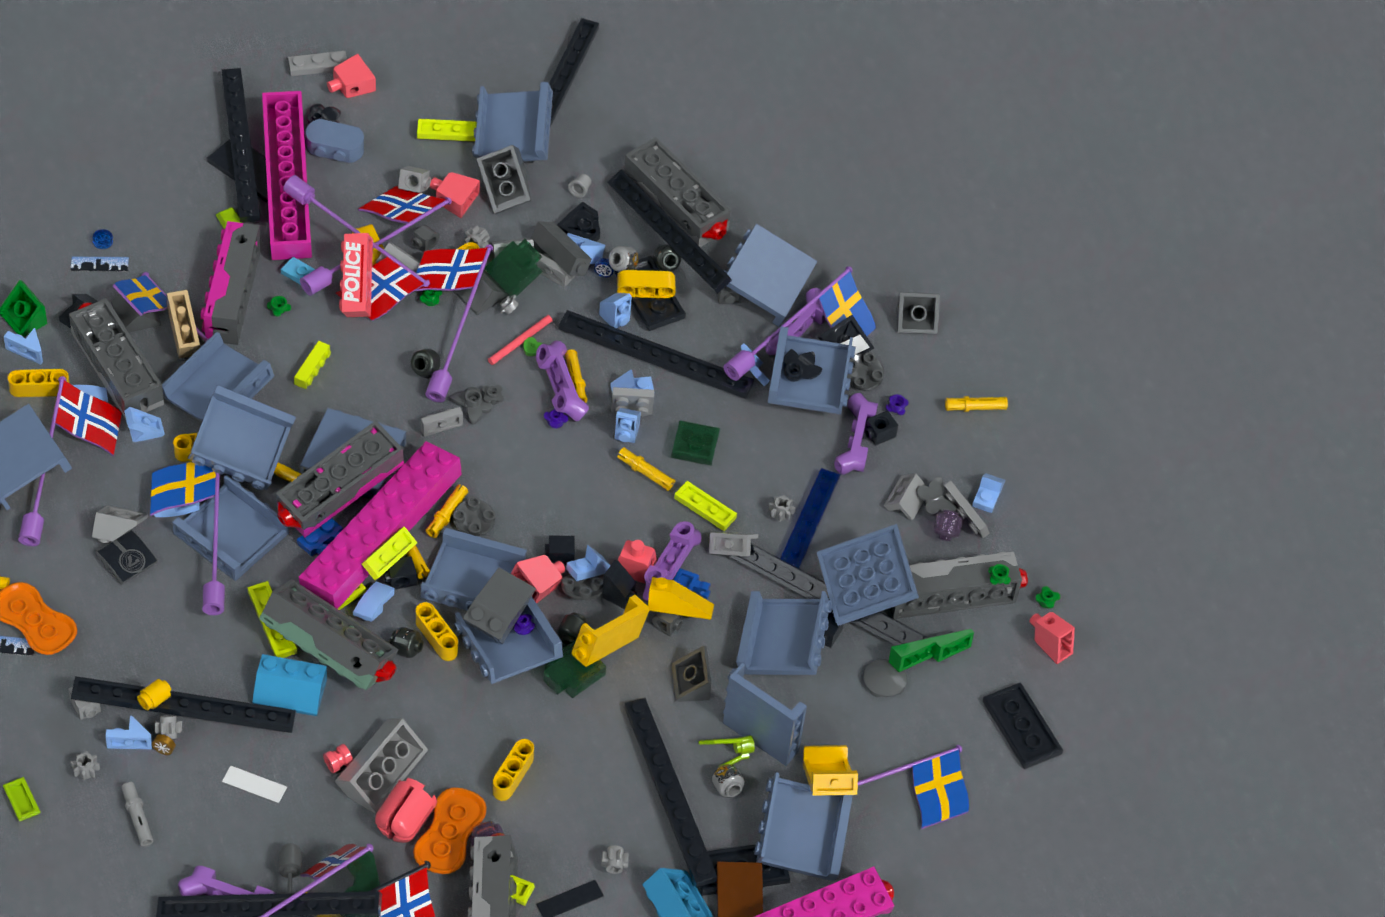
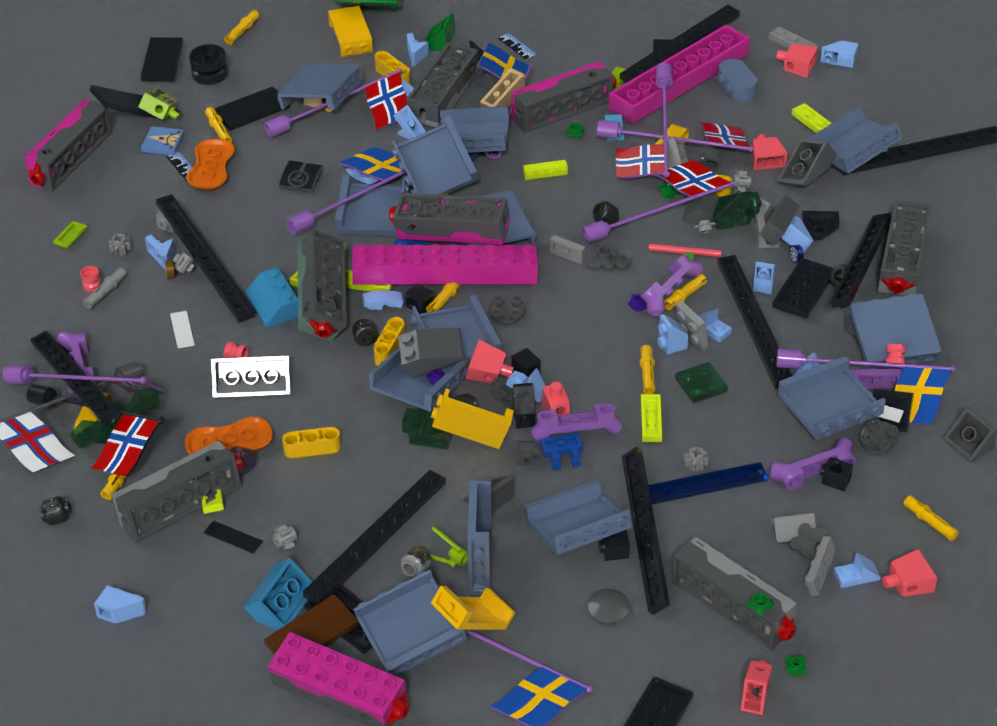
camera: 60 degrees right, 10 degrees down
(102, 239) = (536, 36): clear blue tile -> none
(114, 522) = (319, 153): light grey slope -> none
(114, 818) = (90, 278): none -> coral wheel
(154, 694) = (191, 233): yellow brick -> none
(318, 111) = (755, 65): black plate -> none
(357, 275) = (633, 141): coral brick -> none
(377, 43) = (840, 53): none -> light blue slope
(389, 553) = (419, 276): neon yellow plate -> none
(404, 811) = (217, 403): coral cylinder -> none
(407, 182) = (750, 126): light grey brick -> none
(442, 517) = (488, 293): yellow pin -> none
(580, 185) = (852, 204): light grey piece -> none
(623, 258) = (808, 251): light grey head -> none
(646, 283) = (803, 276): yellow beam -> none
(674, 598) = (539, 439): yellow slope -> none
(731, 543) = (629, 445): light grey panel -> none
(801, 293) = (895, 353): none -> coral wheel
(802, 364) = (827, 389): black plate -> none
(867, 574) = (674, 527): sand blue plate -> none
(897, 400) = (873, 472): dark purple plate -> none
(938, 647) = (669, 620): green slope -> none
(948, 525) = (790, 561): clear purple head -> none
(1023, 459) = (911, 575): none -> coral torso

